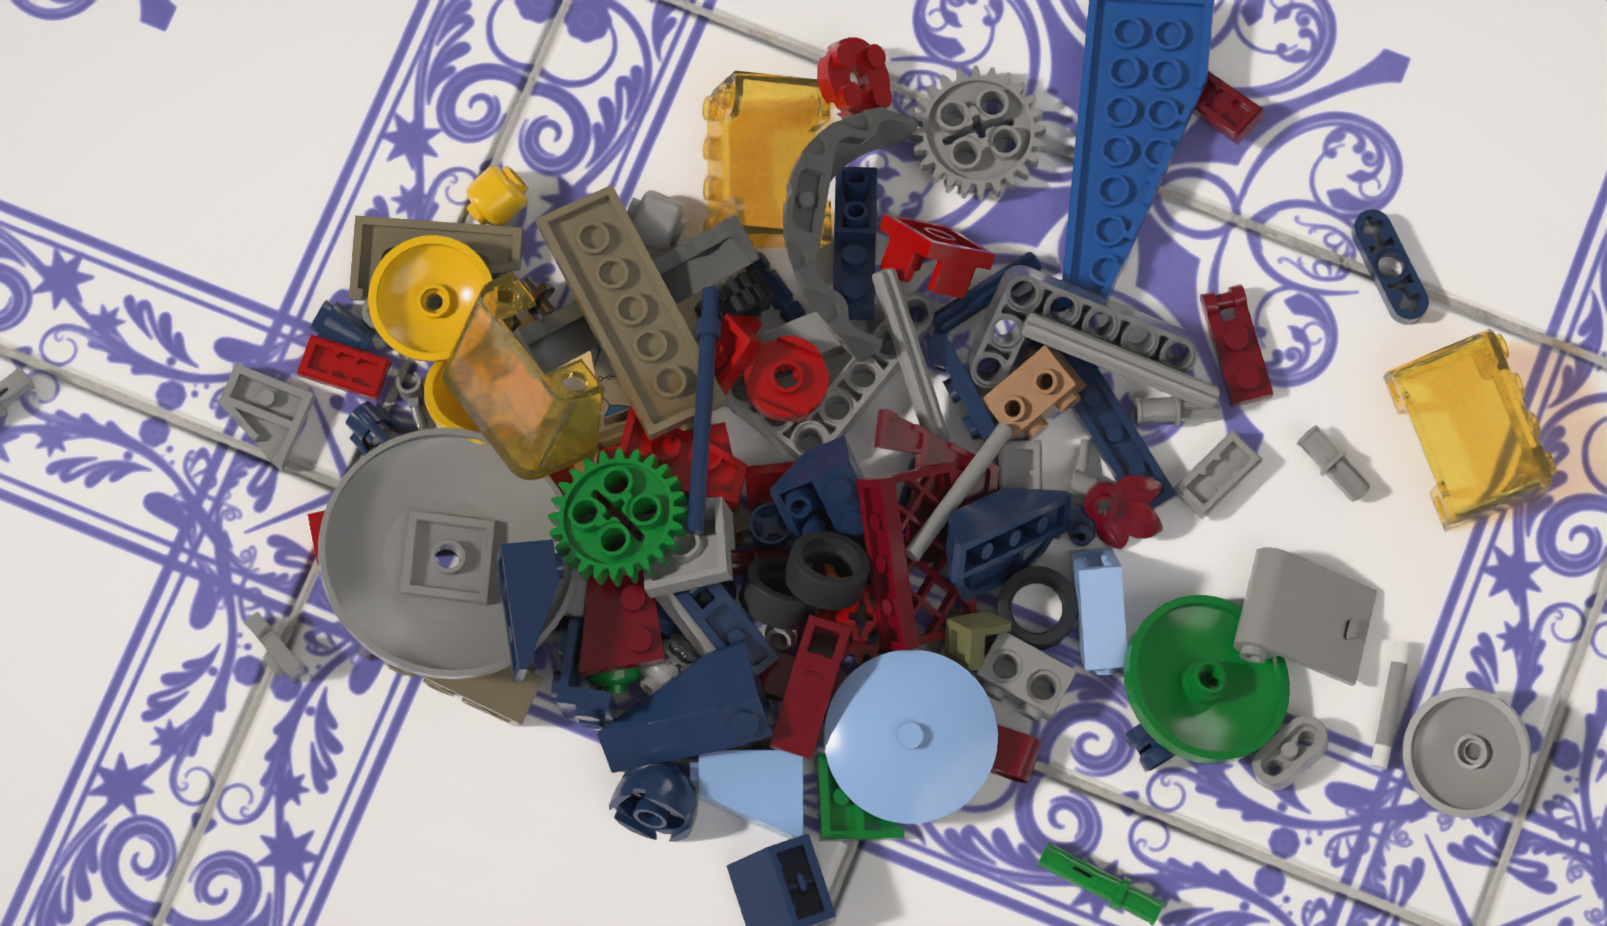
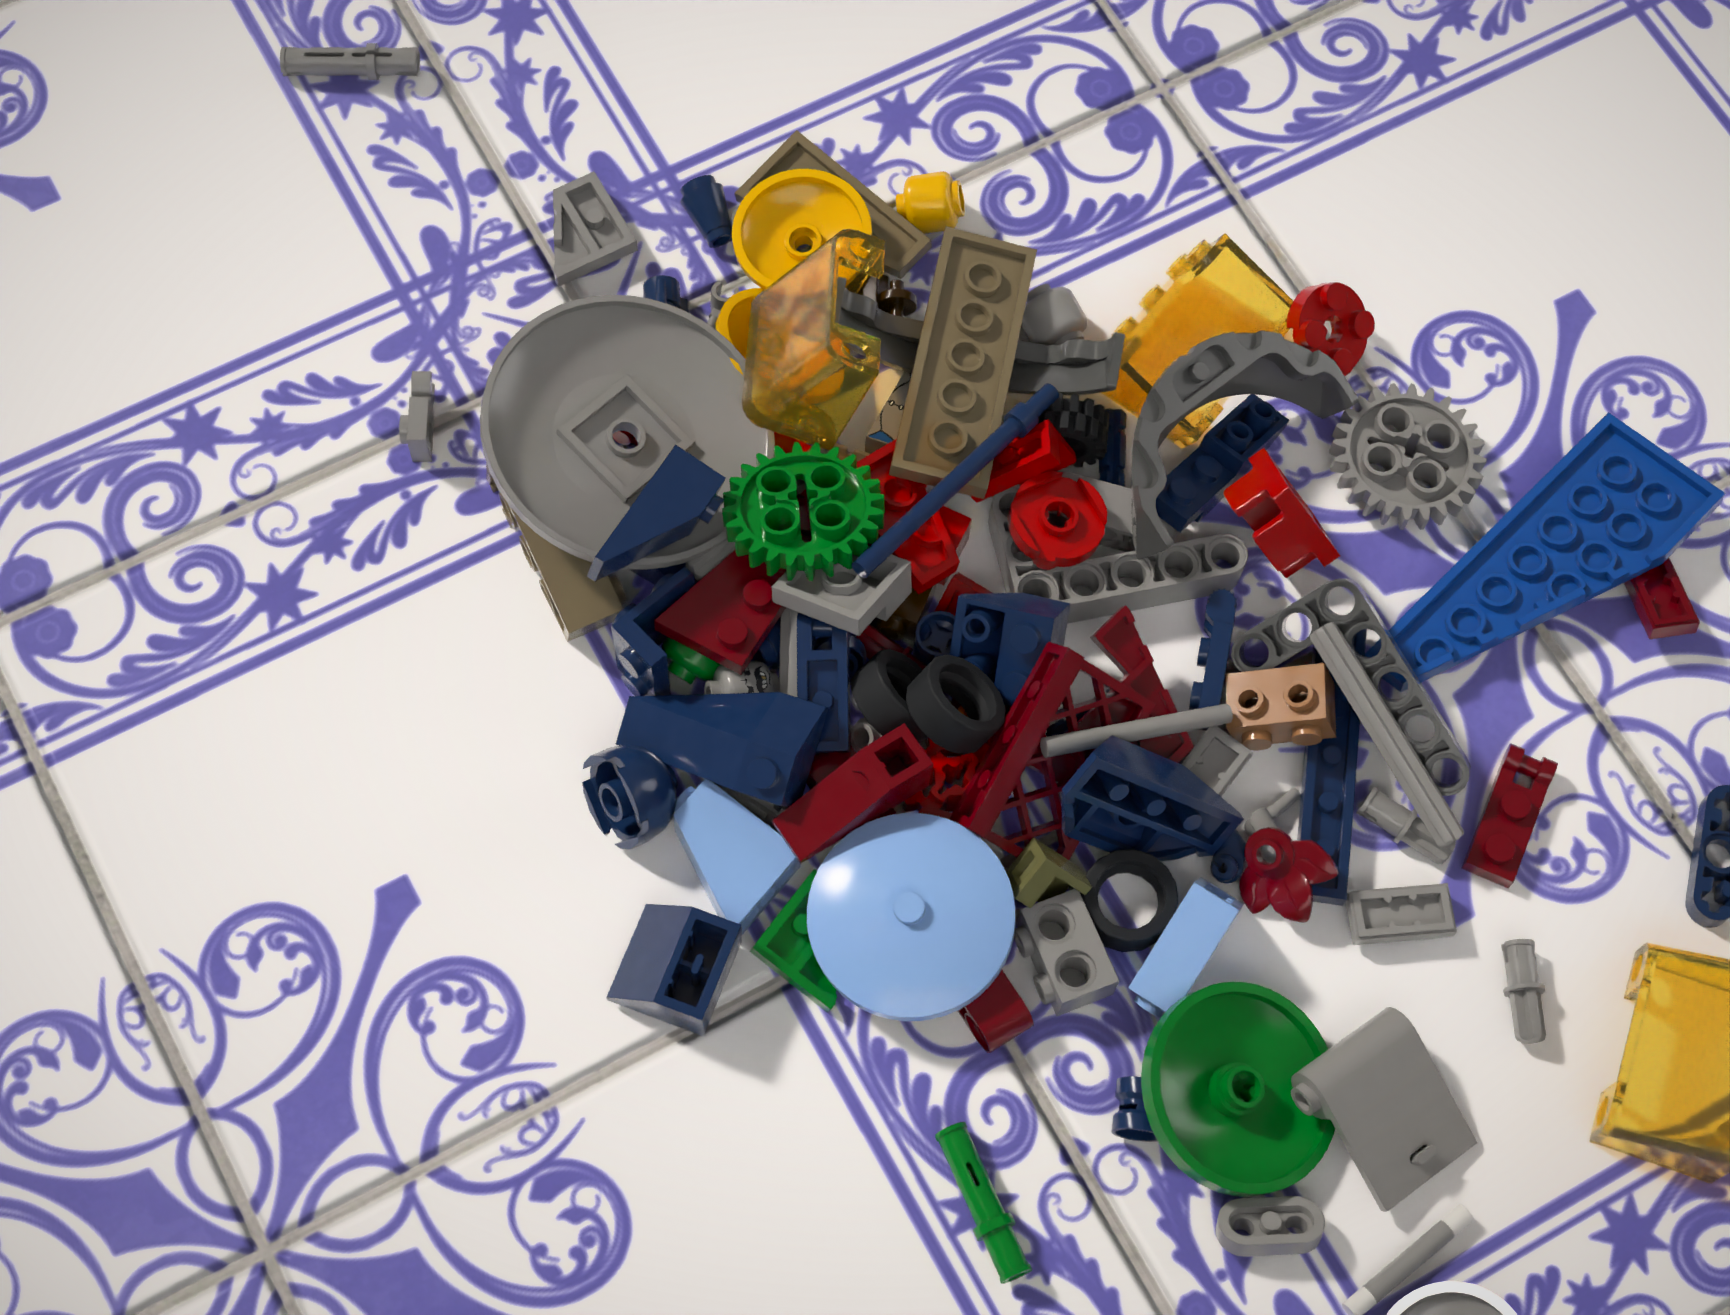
camera: 35 degrees right, 10 degrees down
(344, 368) = (682, 243): red plate -> none
(909, 352) = (1190, 580): light grey axle -> none
(978, 297) = (1283, 592): dark blue axle -> none

